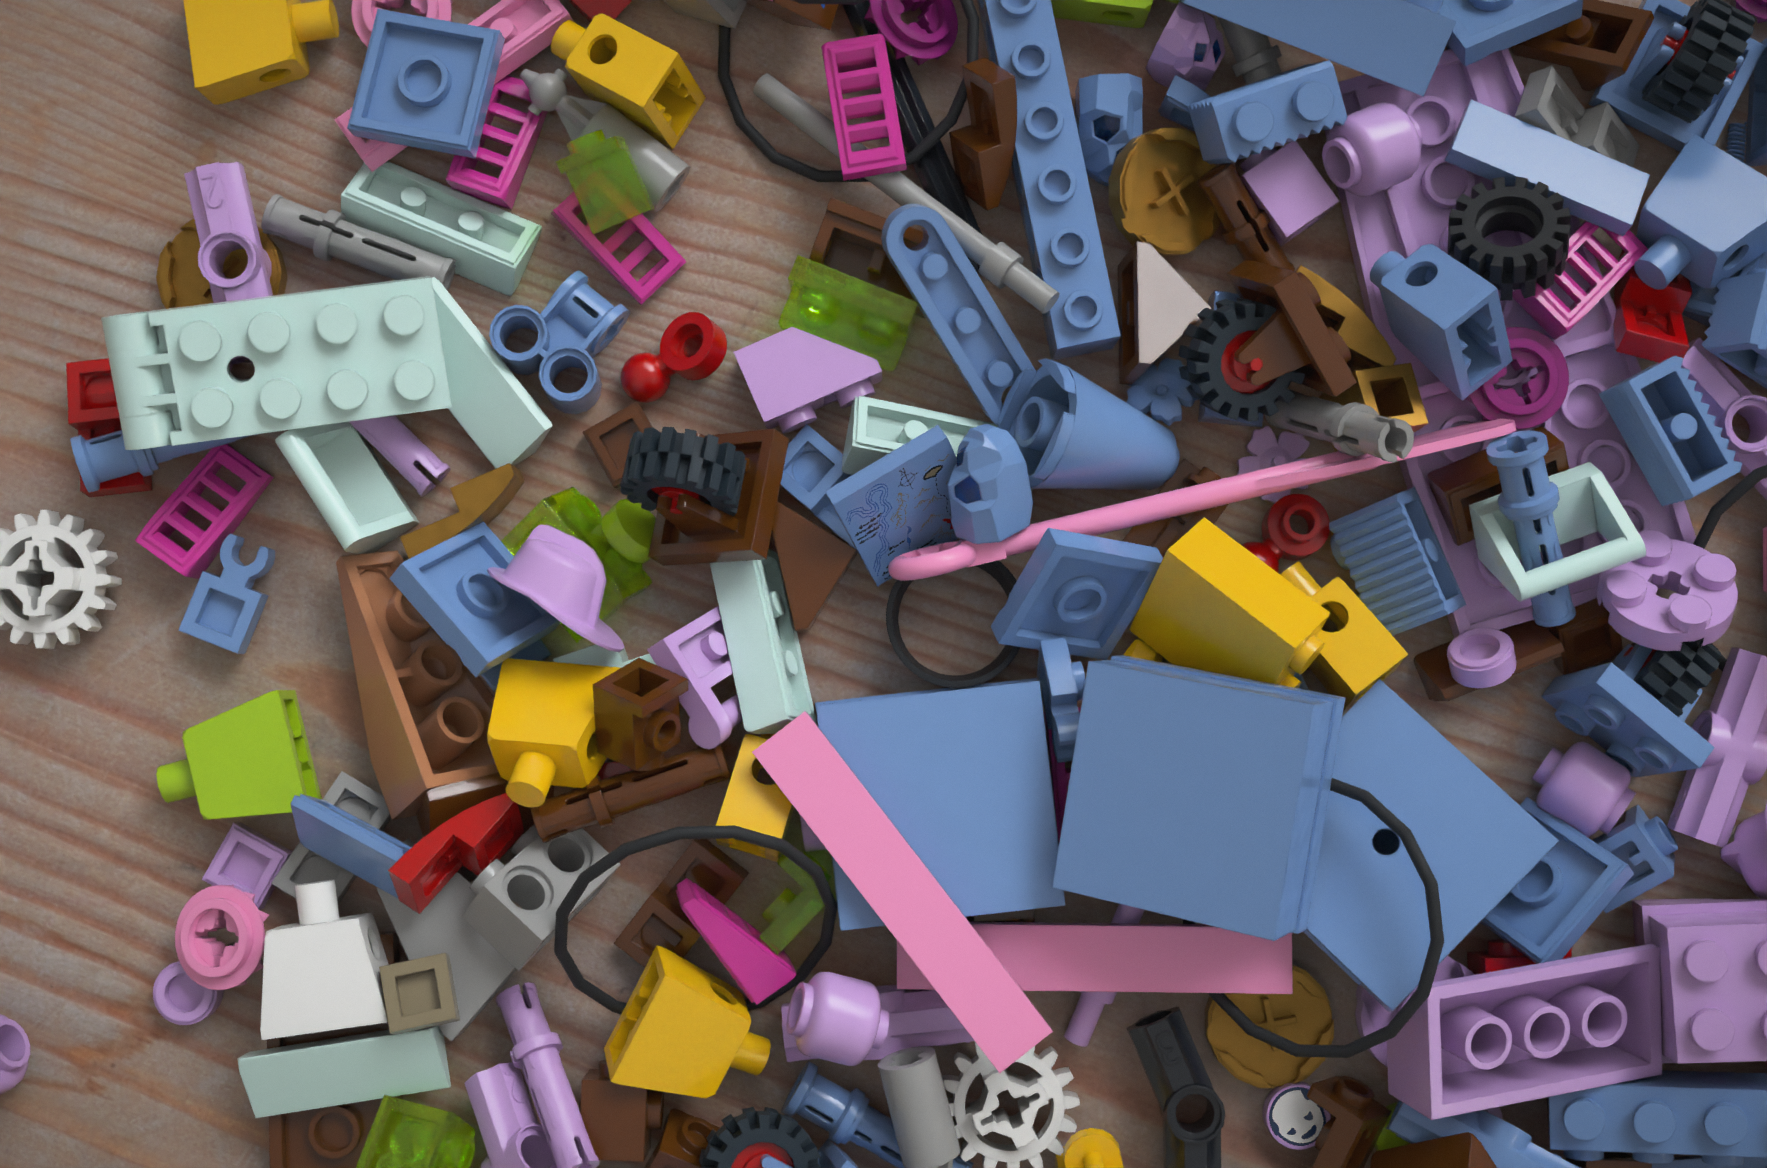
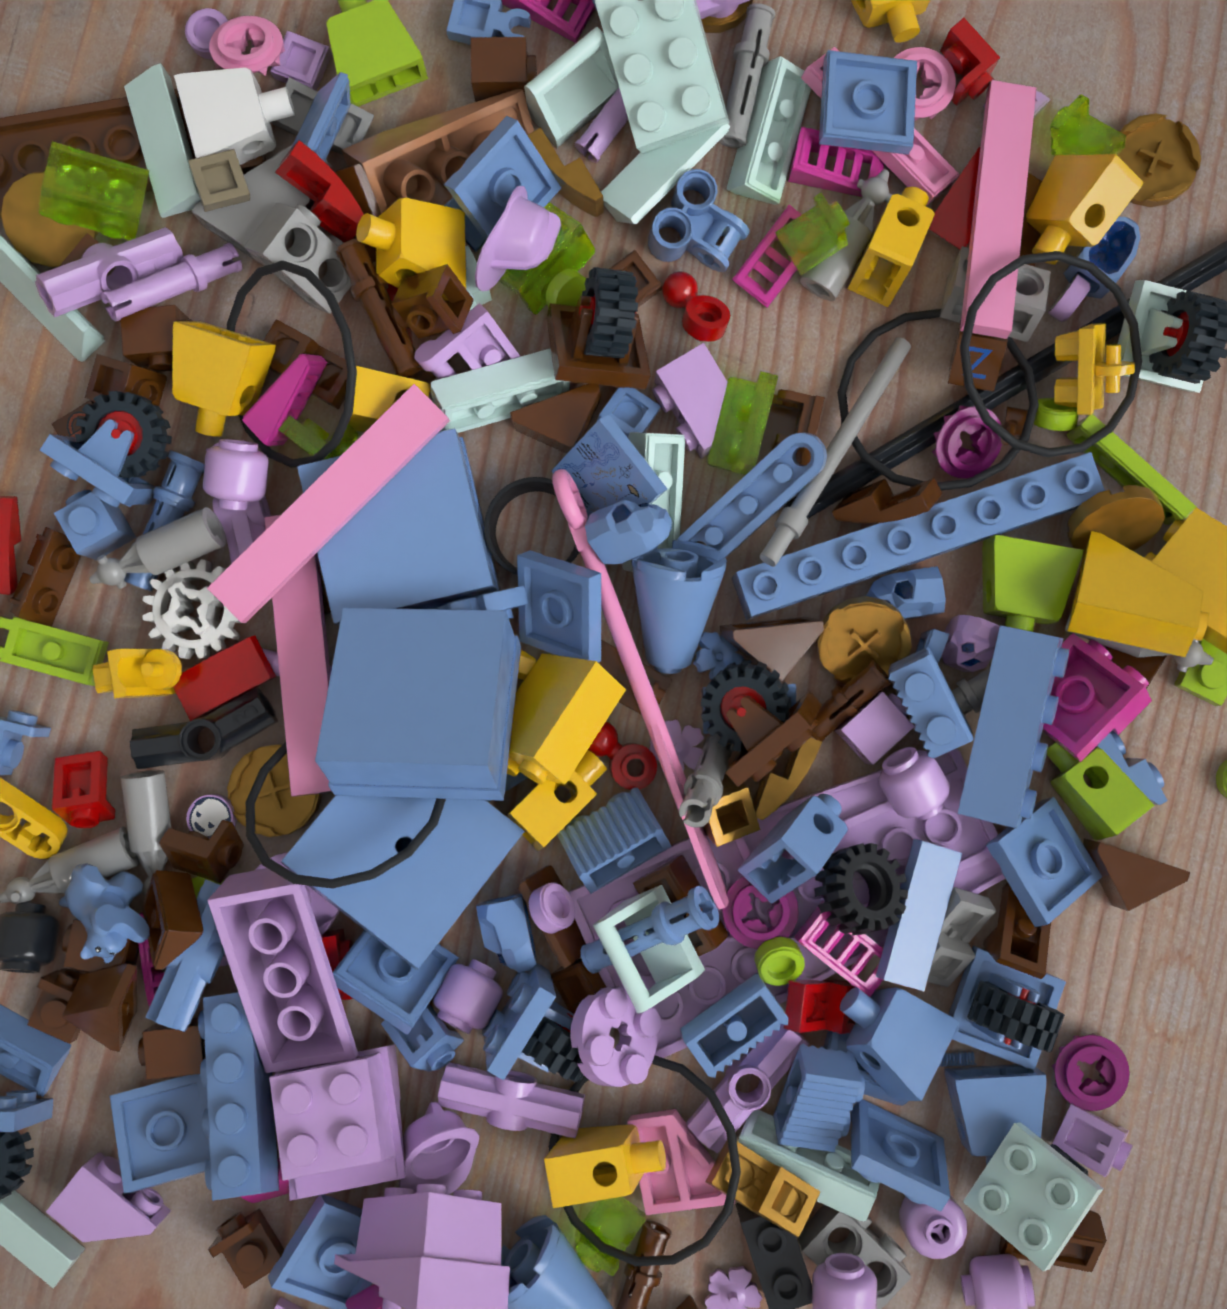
camera: 80 degrees right, 0 degrees up
(302, 582) = (500, 65): none -> reddish brown brick
(854, 67) = (922, 403): dark pink slope -> none
(1109, 1073) = (223, 677): none -> red slope
(1501, 723) = (508, 931): none -> medium blue rock
(1587, 361) = (779, 961): none -> lime tile

